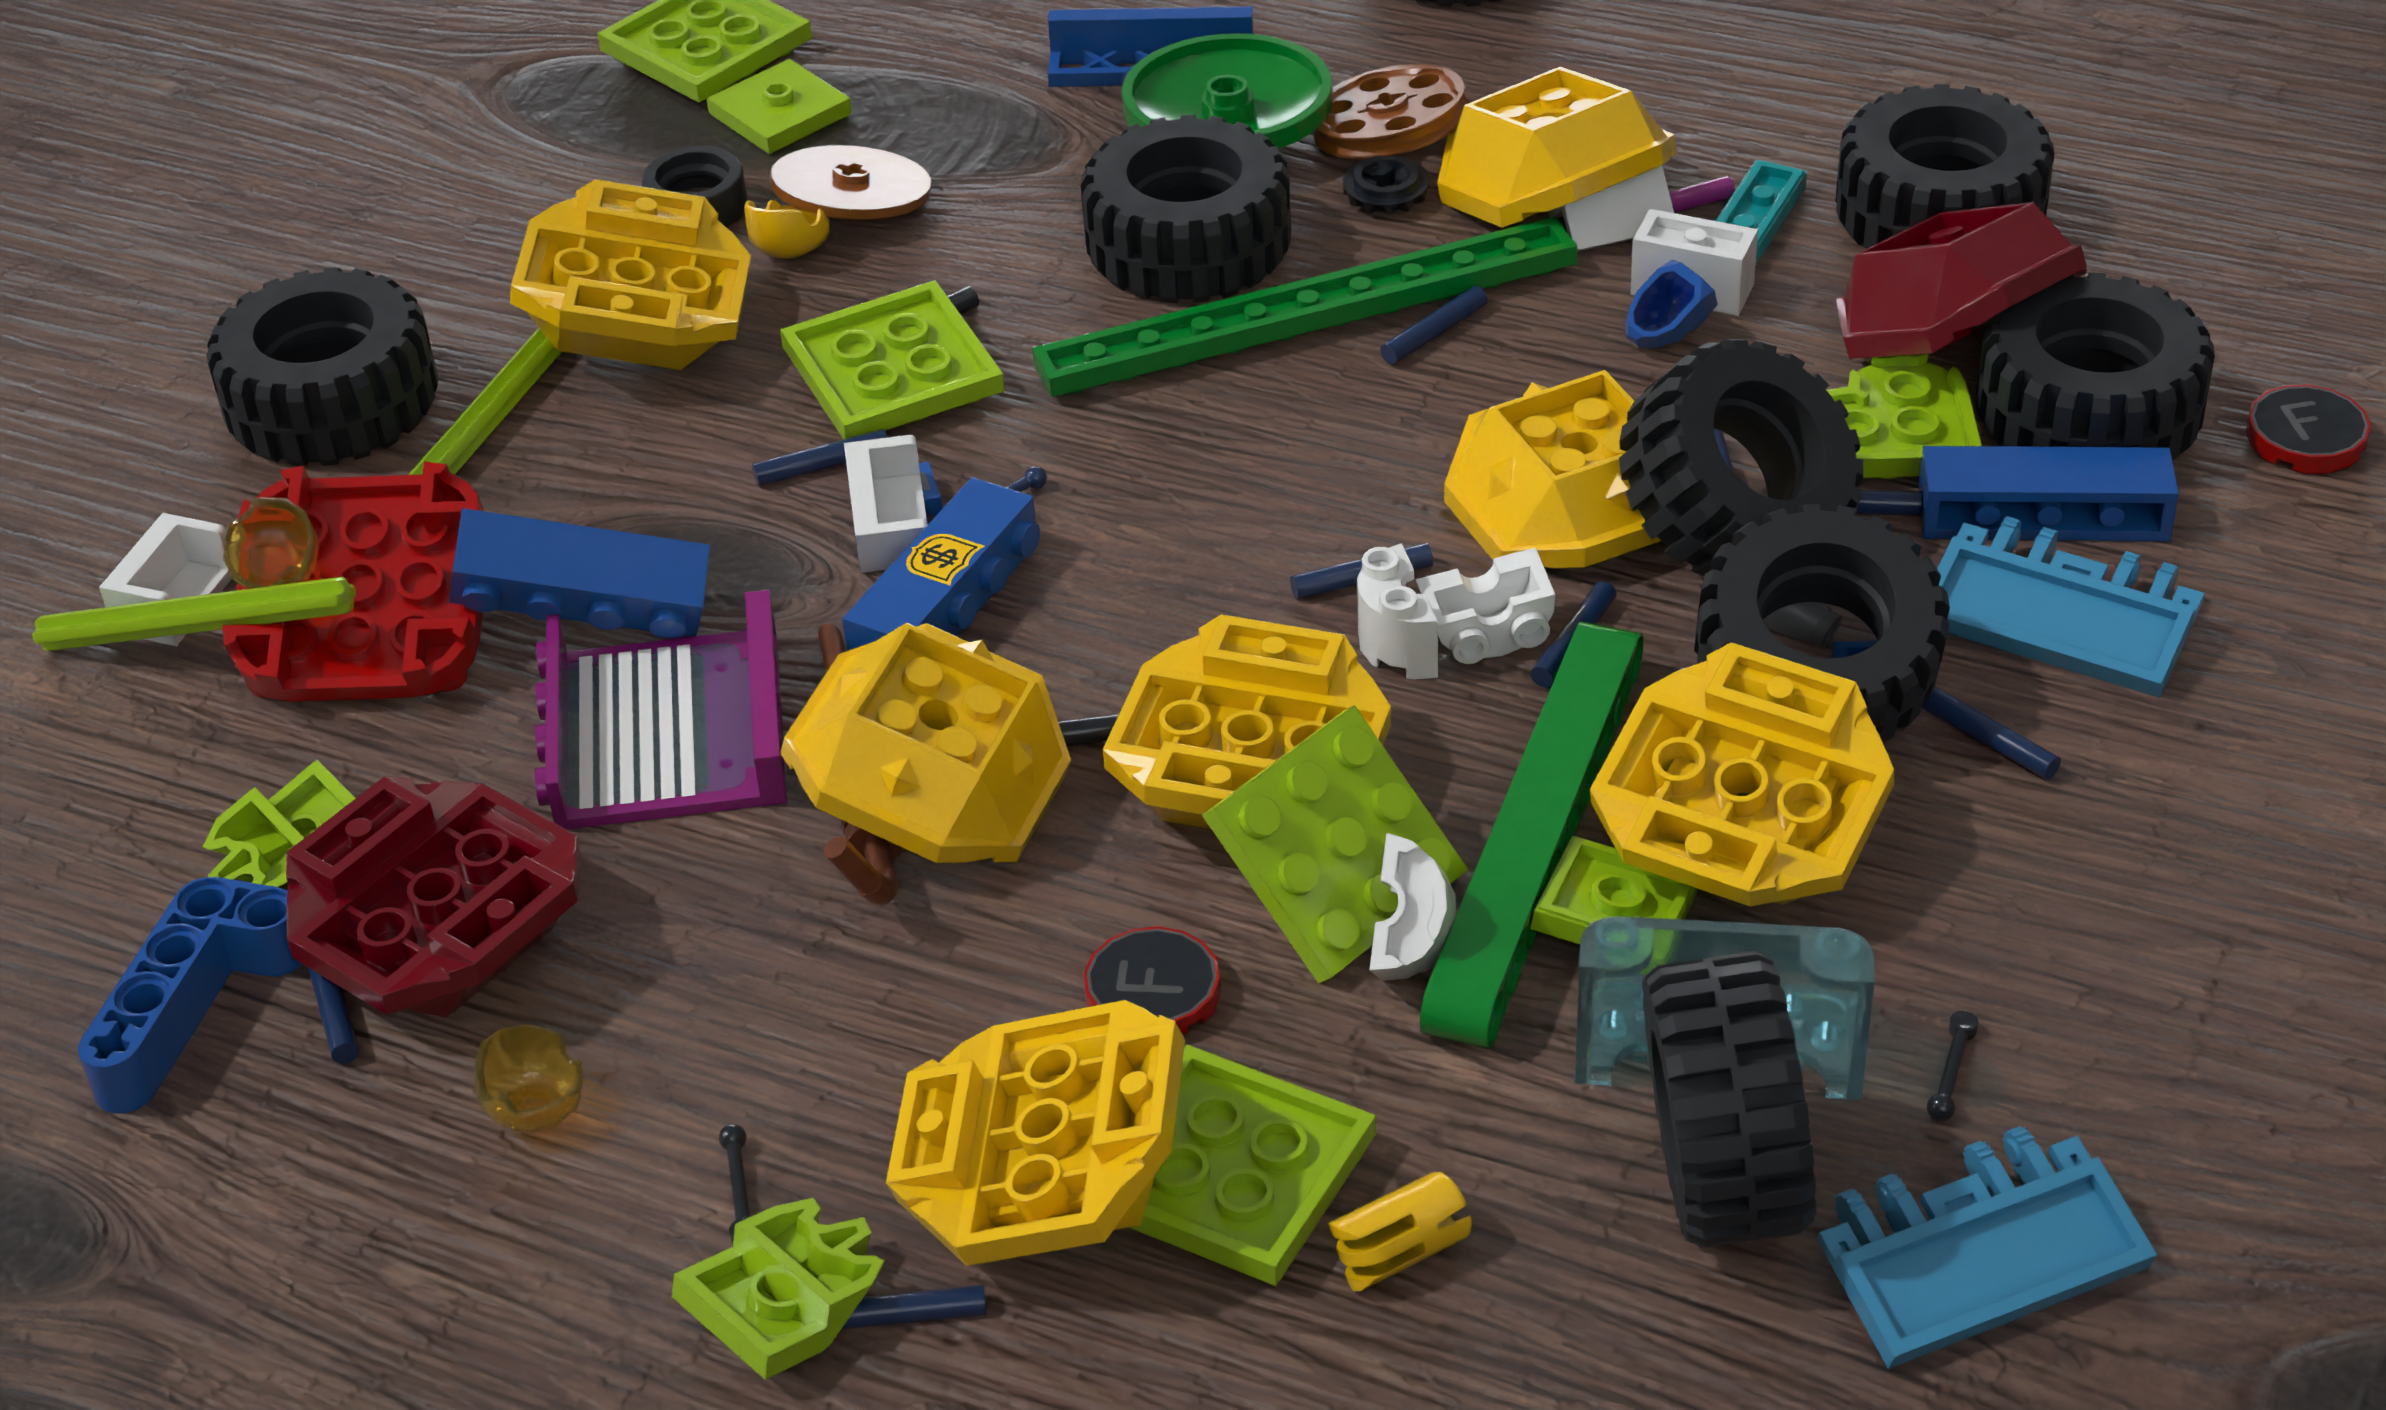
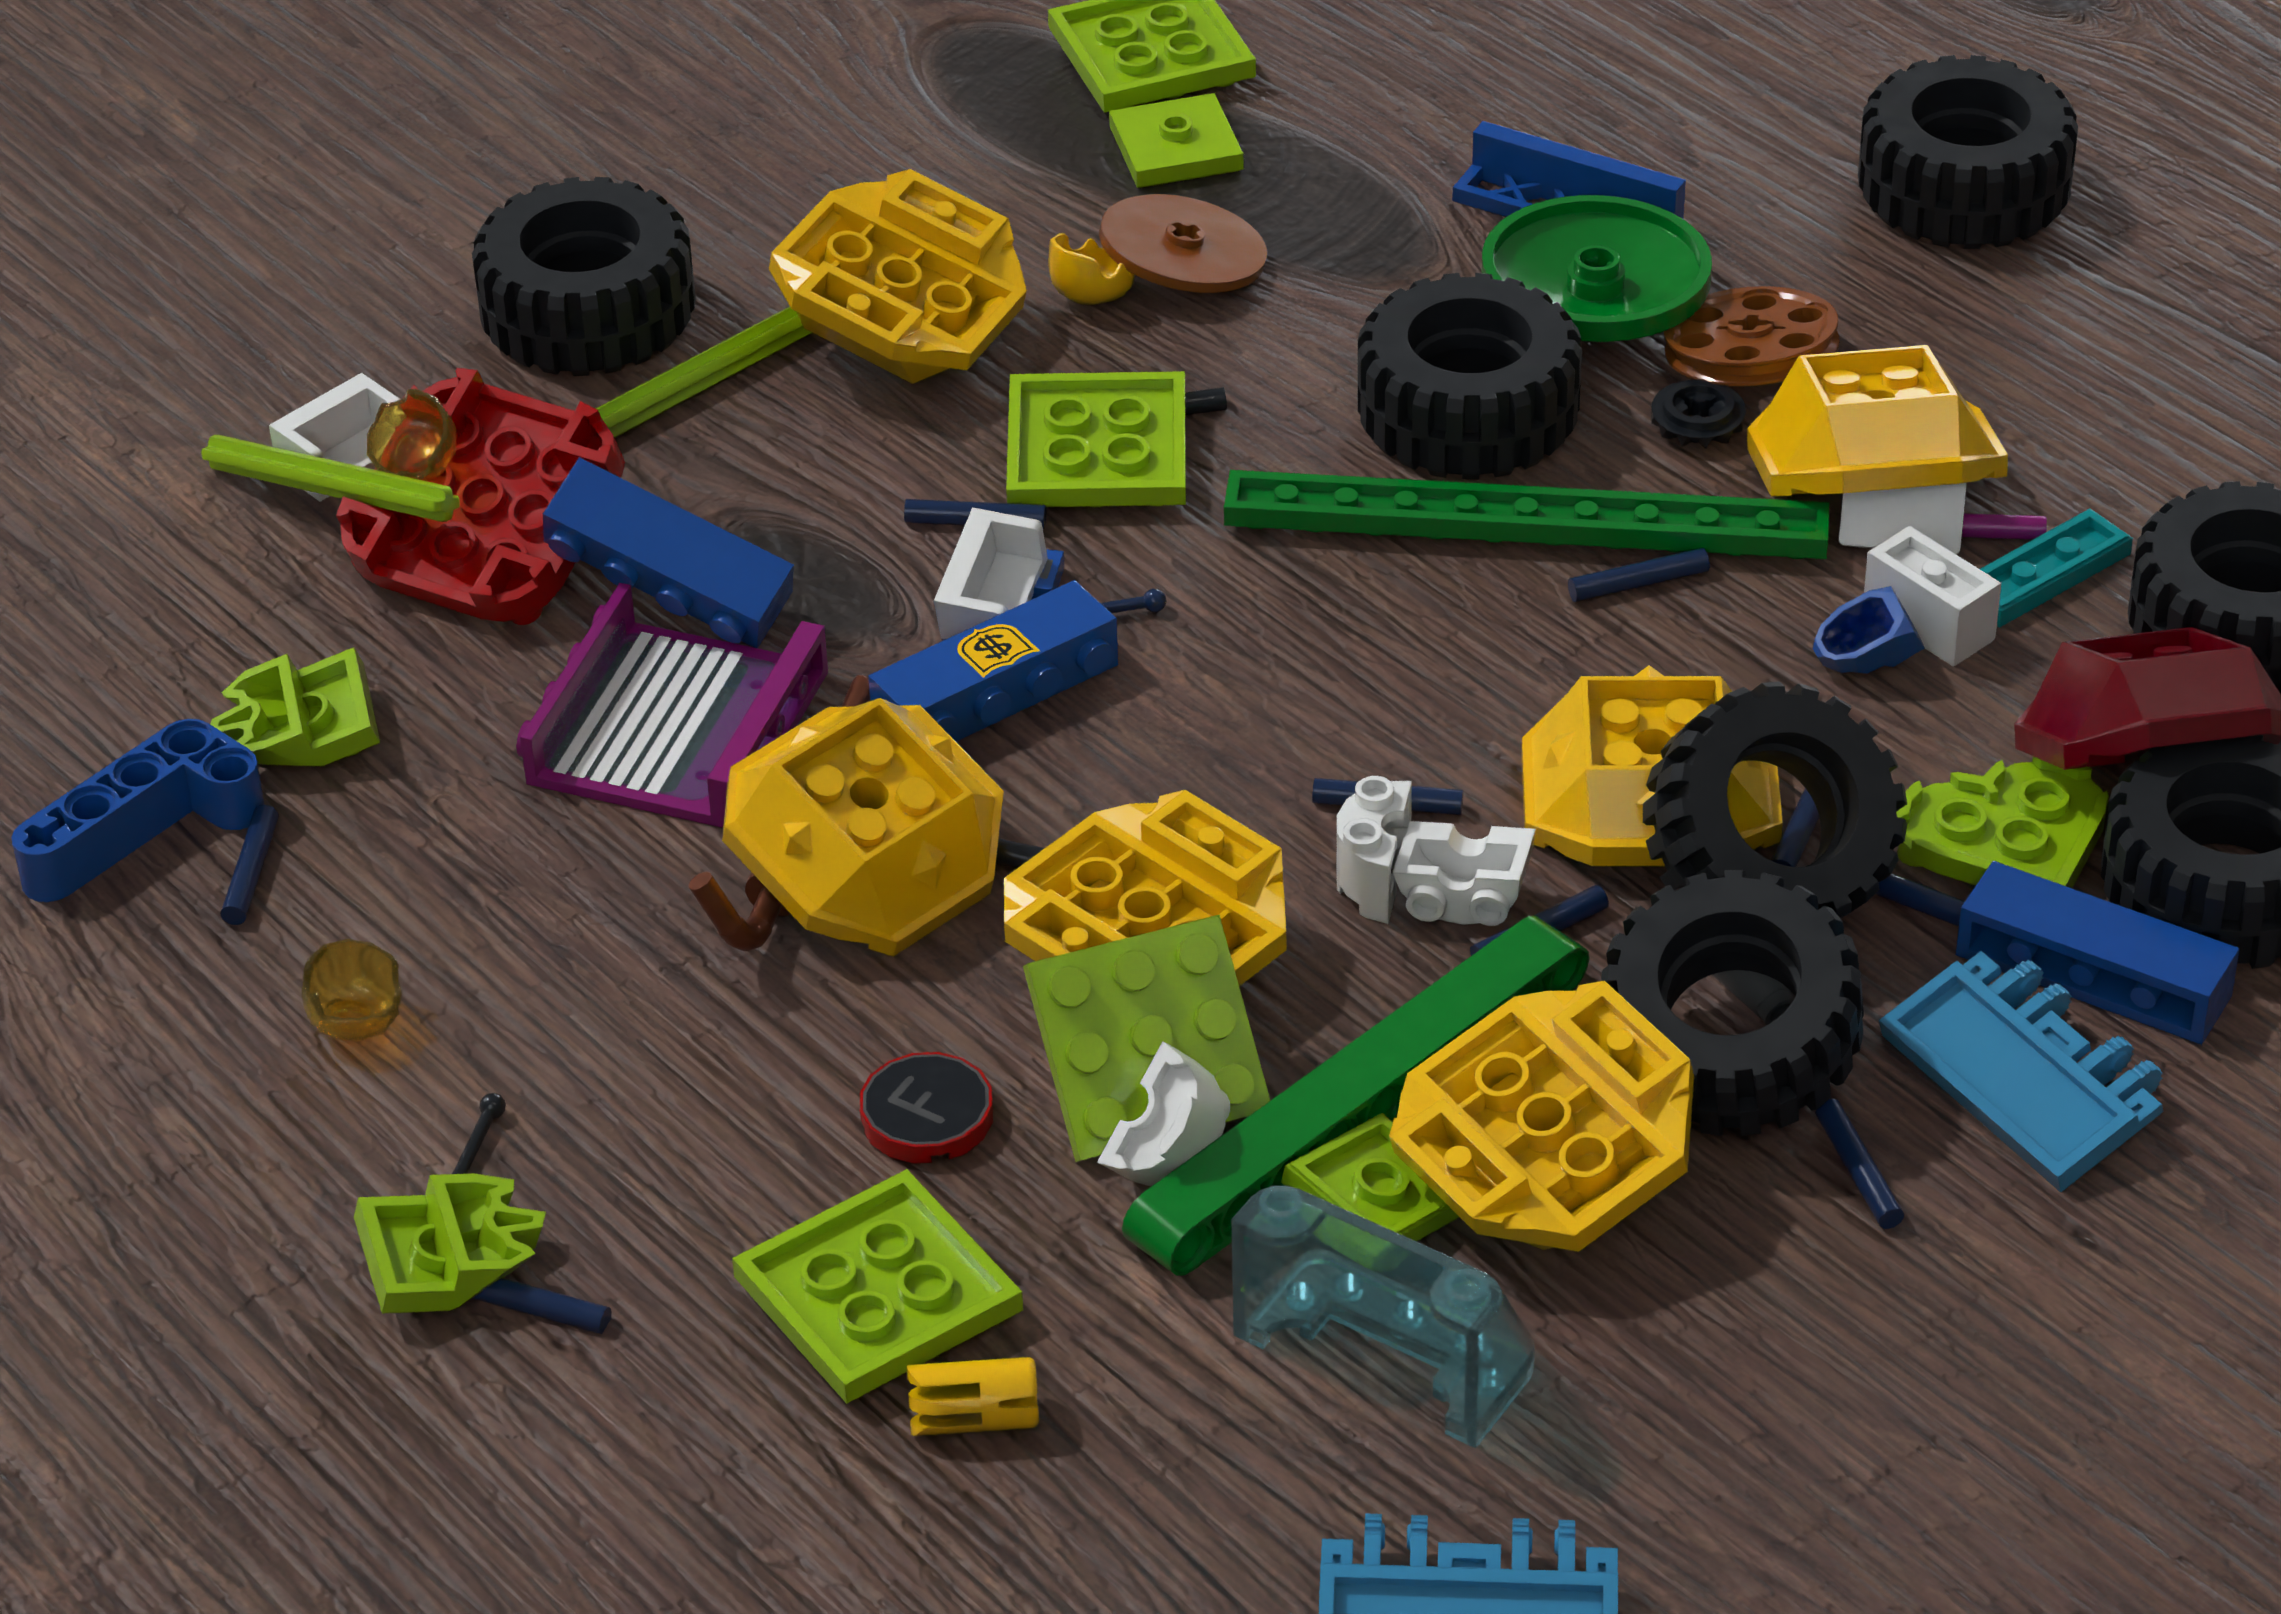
camera: 25 degrees right, 0 degrees up
(426, 892) = (365, 798): dark red piece -> none
(702, 168) = (1037, 181): black tyre -> none
(1039, 1131) = (711, 1193): yellow piece -> none
(1729, 1099) = (1287, 1385): black tyre -> none
(1962, 1027) = (1616, 1420): black hinge -> none

